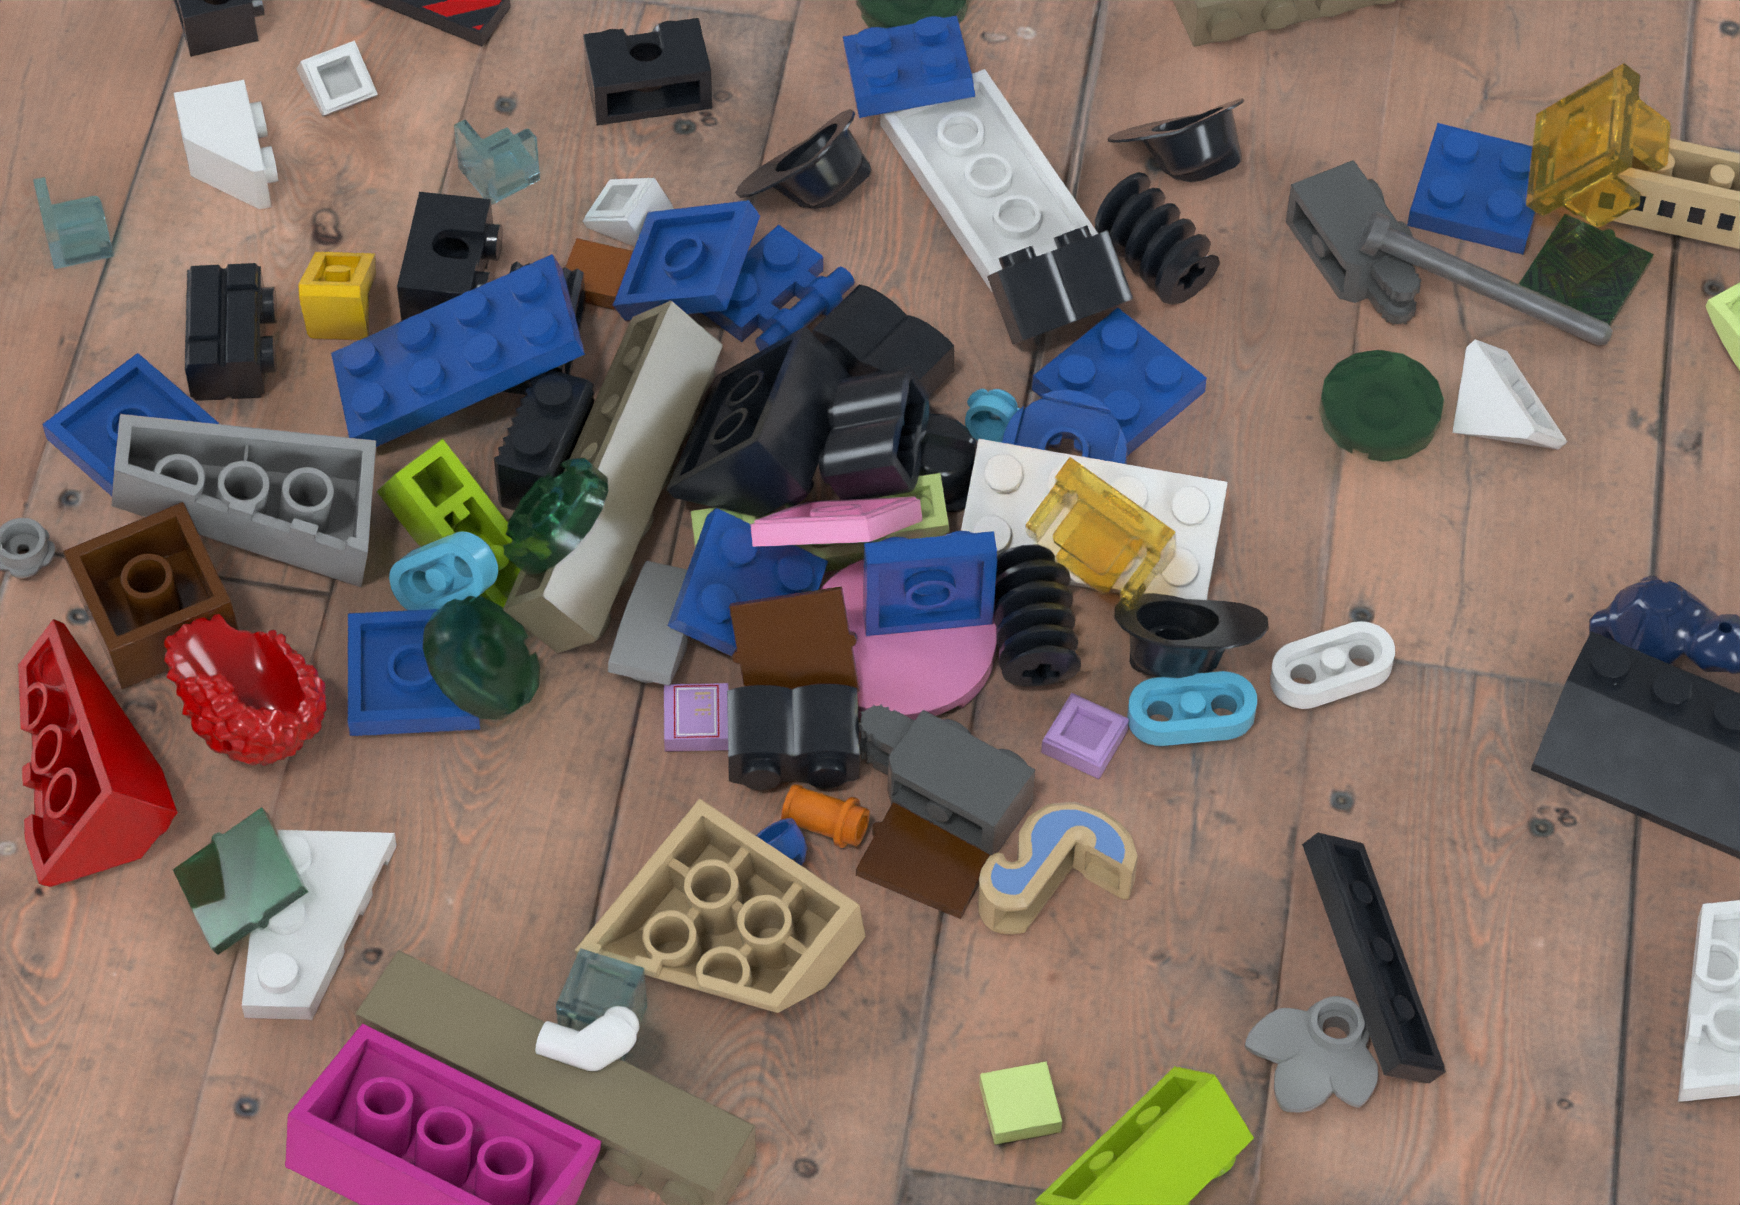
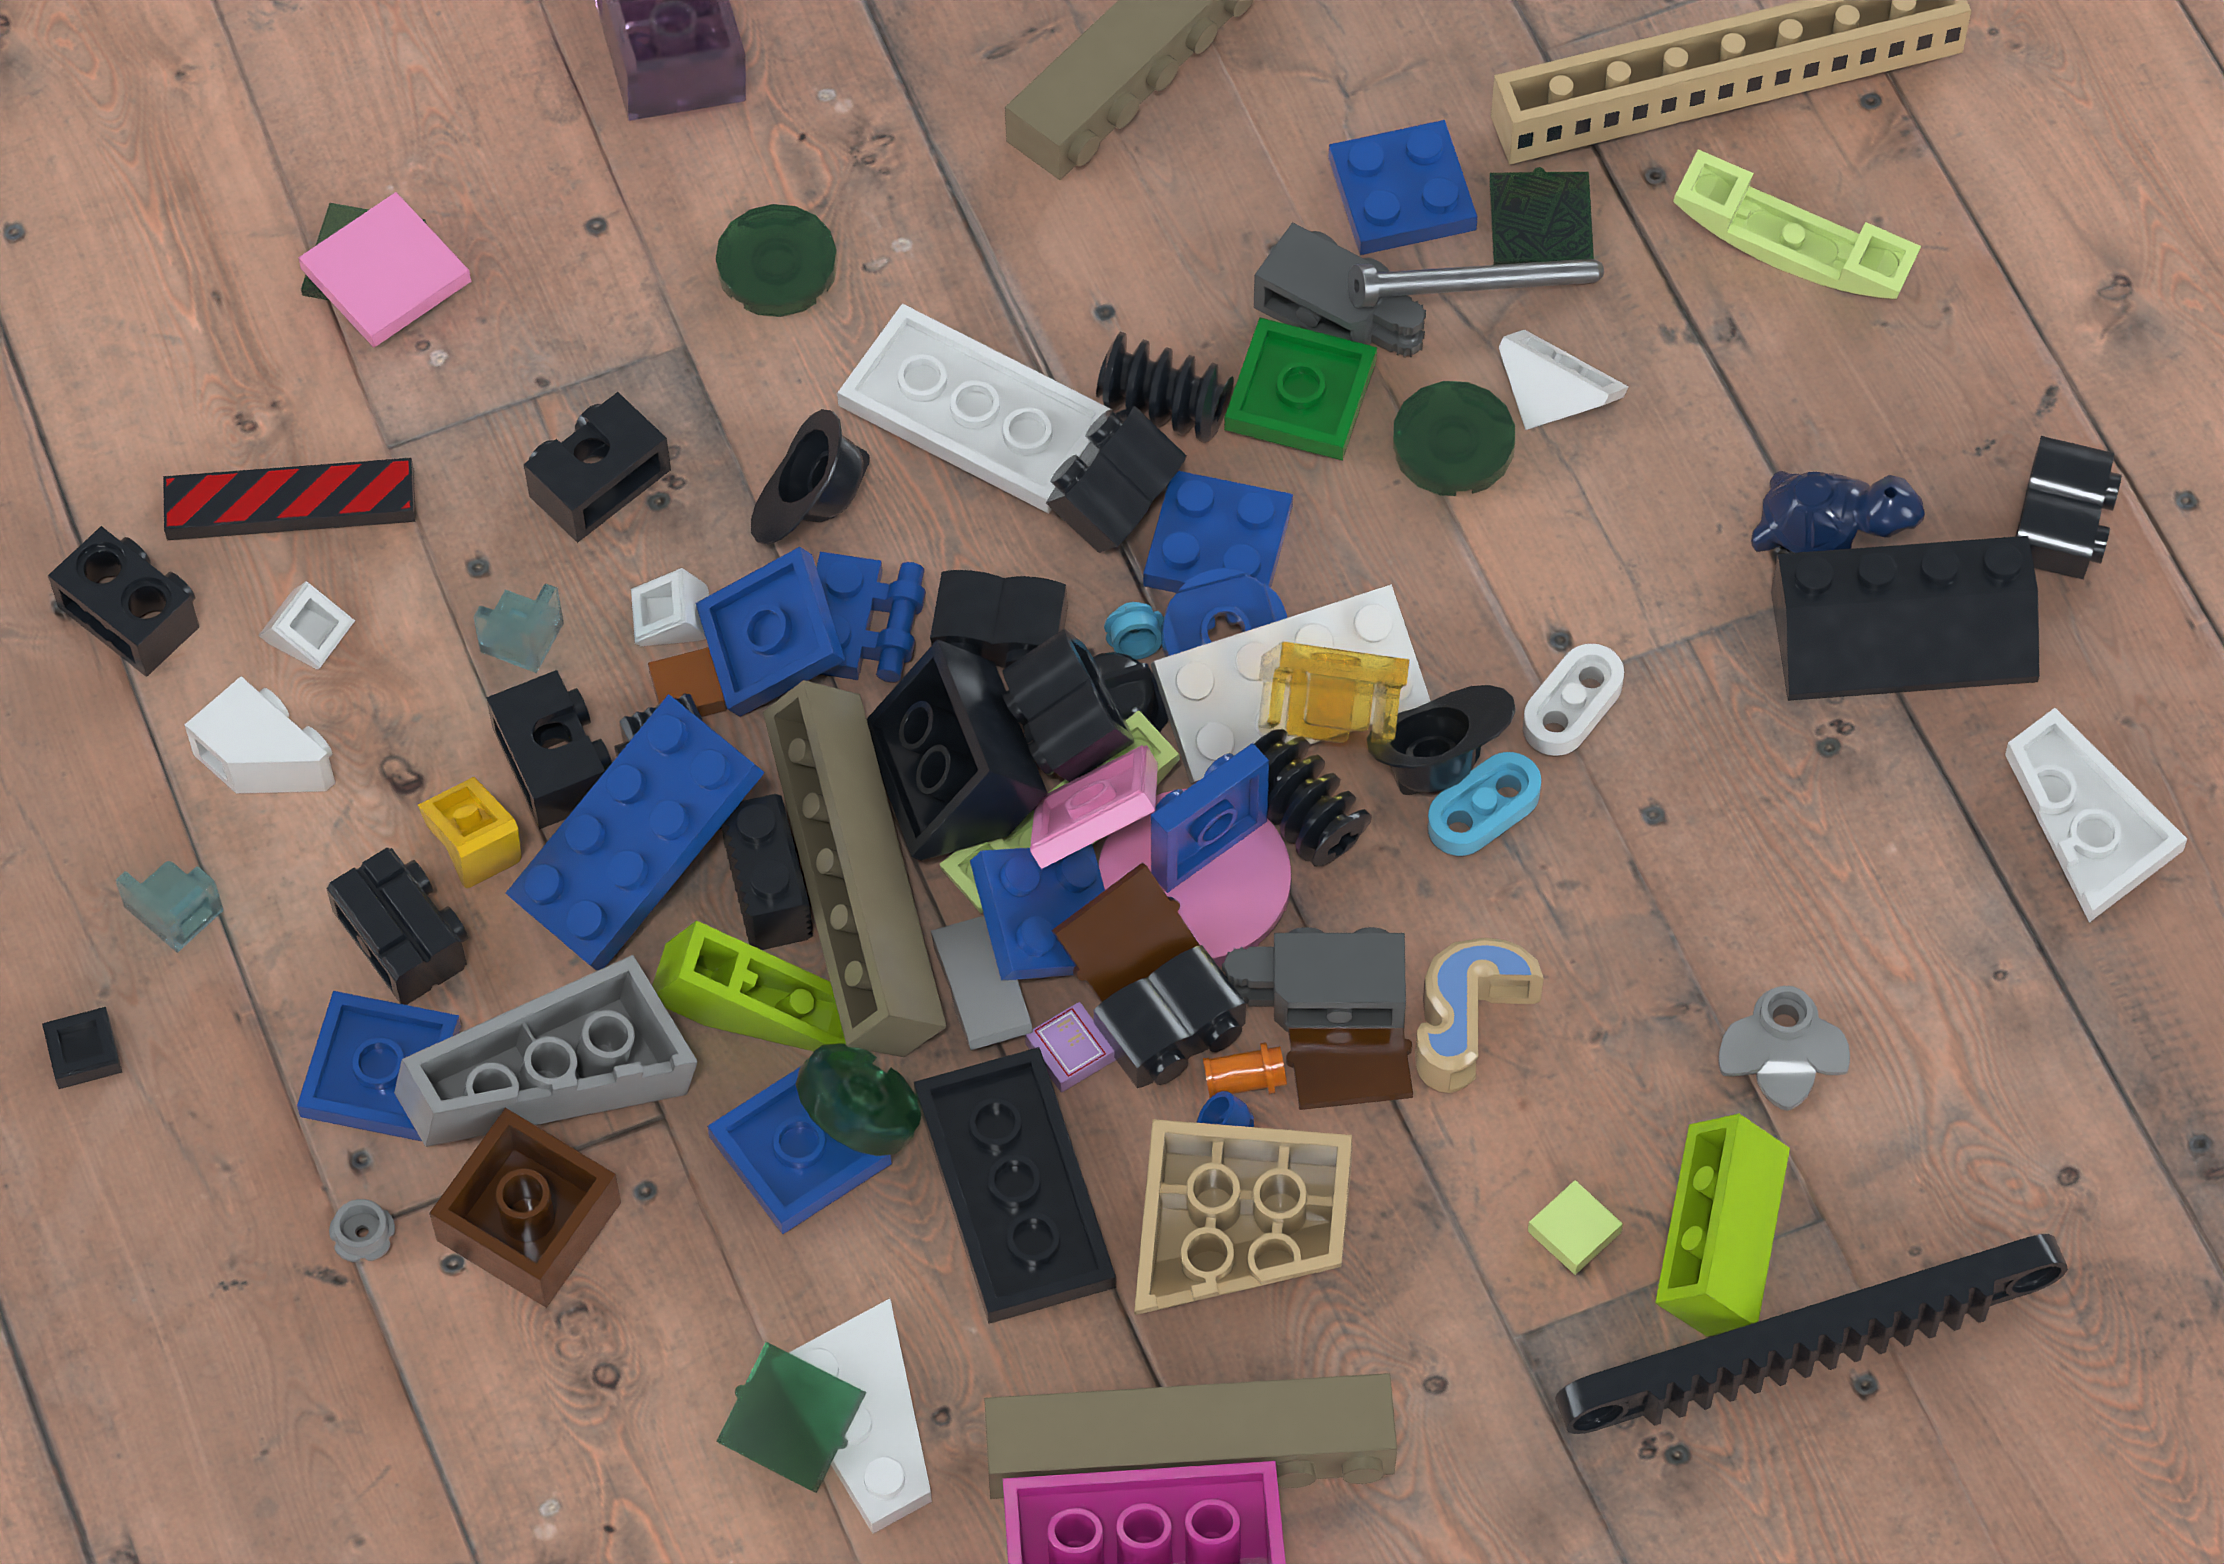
camera: 30 degrees left, 5 degrees up
(90, 771) = (585, 1401): red wedge -> none
(245, 690) = (679, 1245): red piece -> none
(443, 571) = (781, 1035): medium azure plate -> none
(555, 516) = (845, 936): clear green tile -> none
(563, 800) = (1014, 1185): none -> black plate
(594, 1045) = (1217, 1384): white arm -> none
(596, 986) = (1183, 1342): clear light blue panel -> none
(908, 66) = (832, 337): blue plate -> none
(1085, 735) = (1408, 877): lavender tile -> none
(1191, 145) = (1127, 278): black piece -> none
(1274, 299) = (1300, 388): none -> green plate
(1374, 959) = (1777, 938): black tile -> none
(1591, 140) = (1491, 103): clear yellow panel -> none

